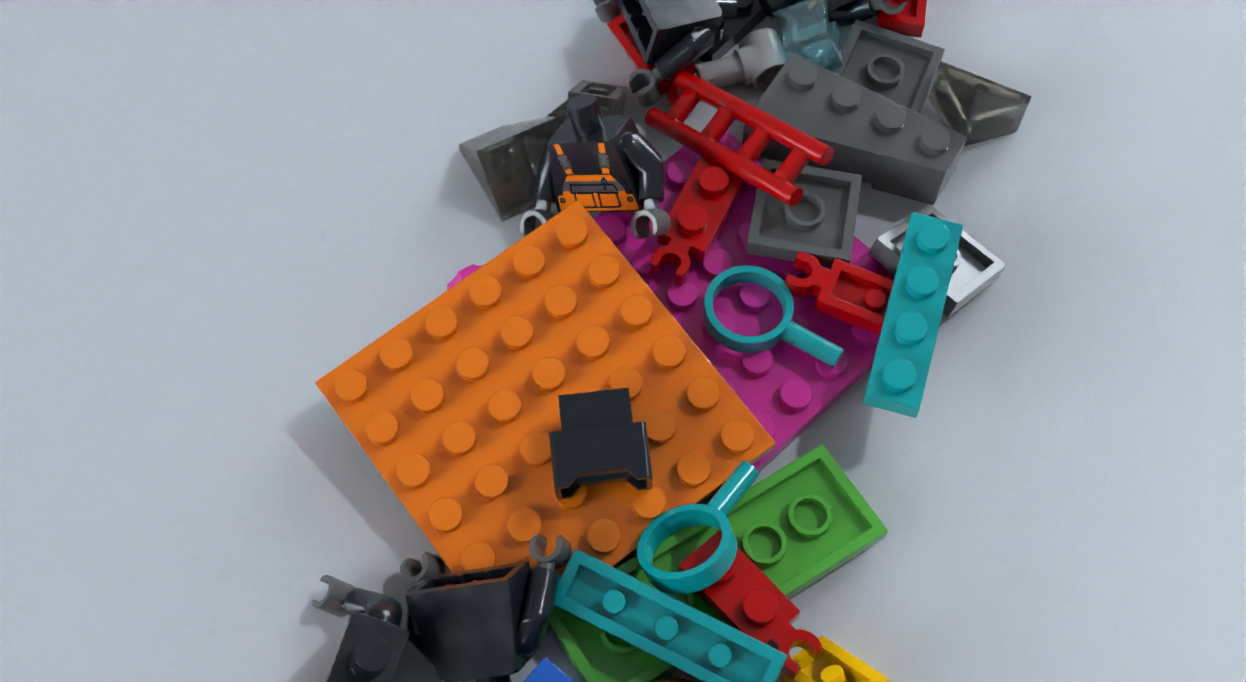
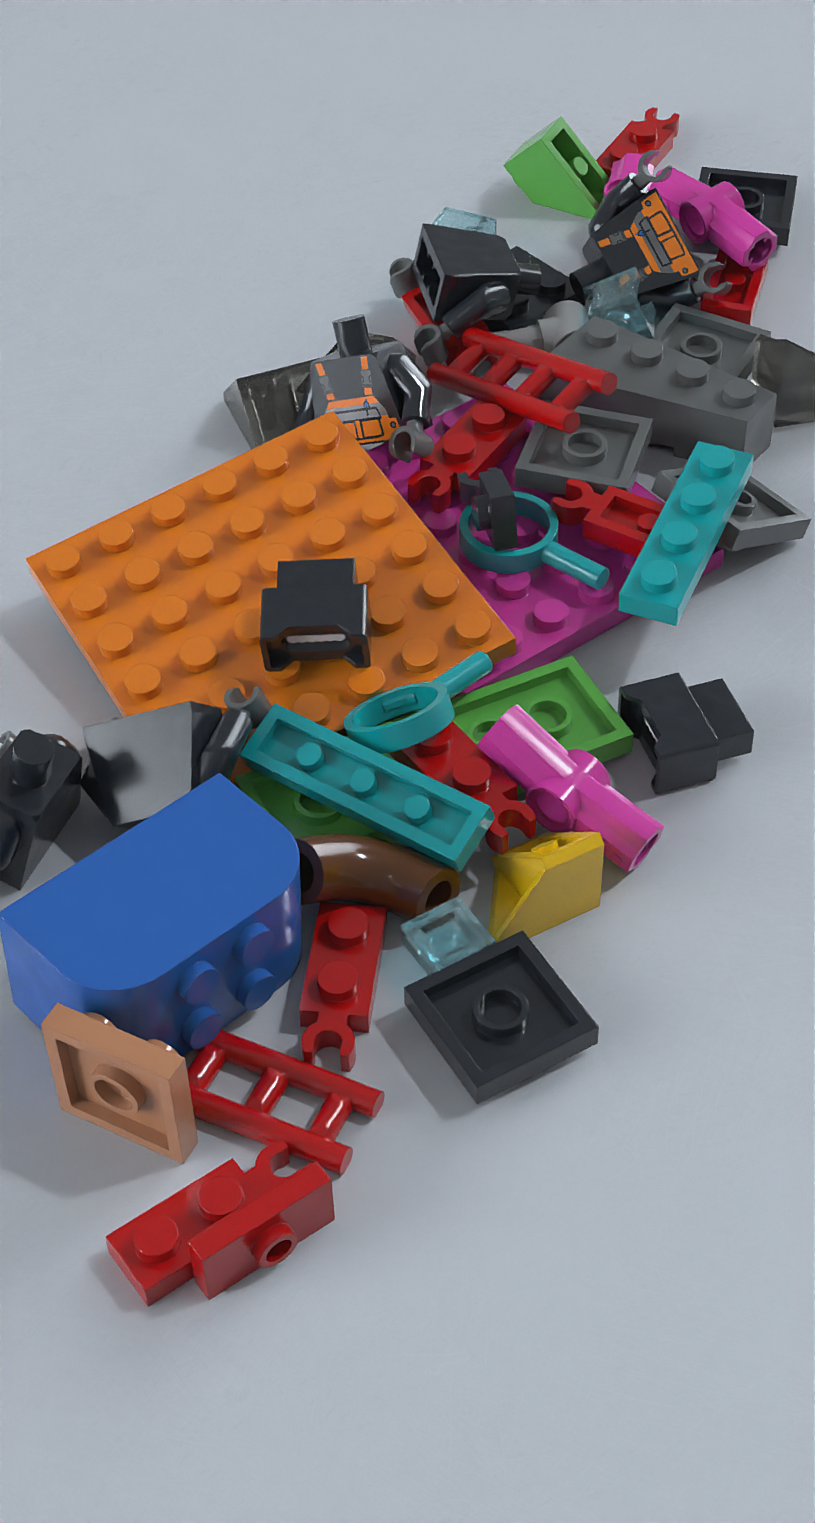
camera: 10 degrees right, 15 degrees down
(738, 295) = (491, 506): none -> black plate
(844, 605) = (569, 788): none -> dark pink piece
(929, 514) = (684, 728): none -> black piece

